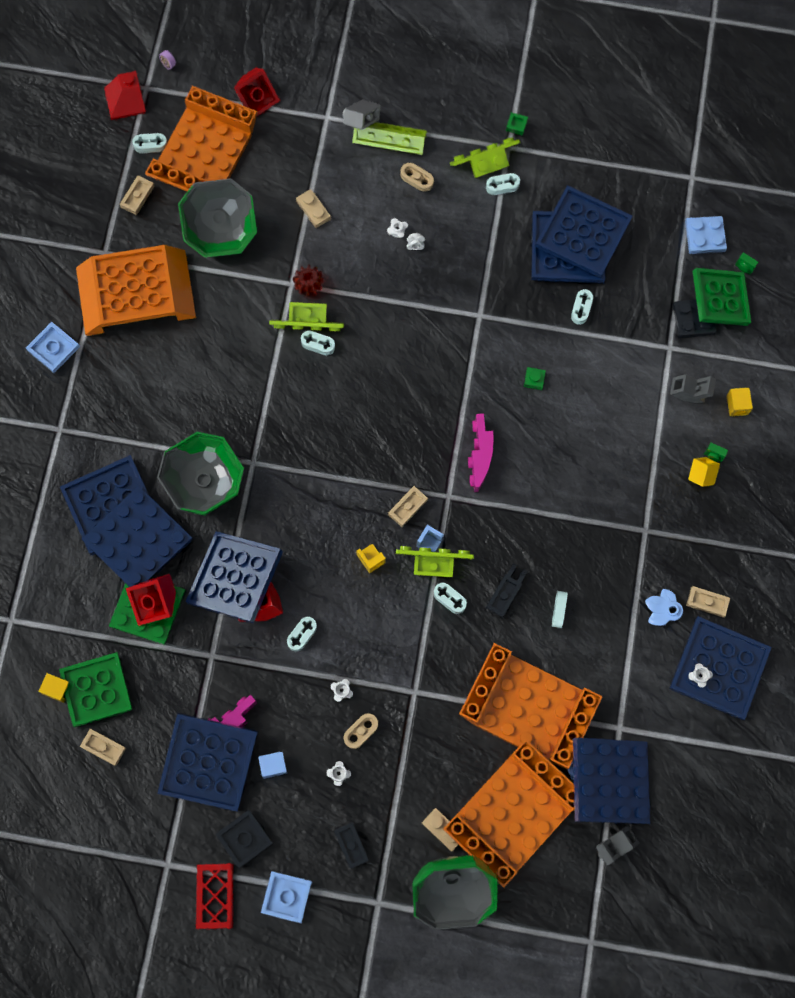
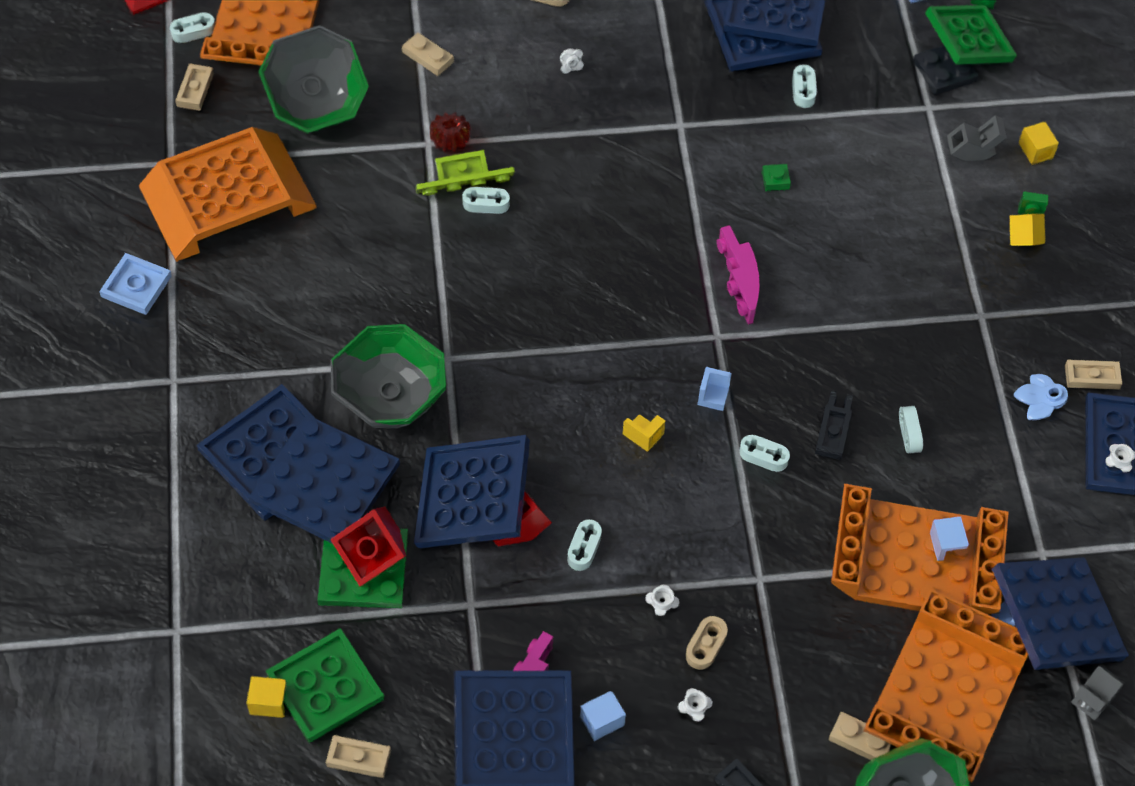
camera: 15 degrees left, 15 degrees down
(399, 233) = (542, 52): white plate -> none
(407, 506) = (670, 358): tan plate -> none
(434, 563) = (729, 412): lime bracket -> none
(553, 704) = (948, 535): none -> light blue panel

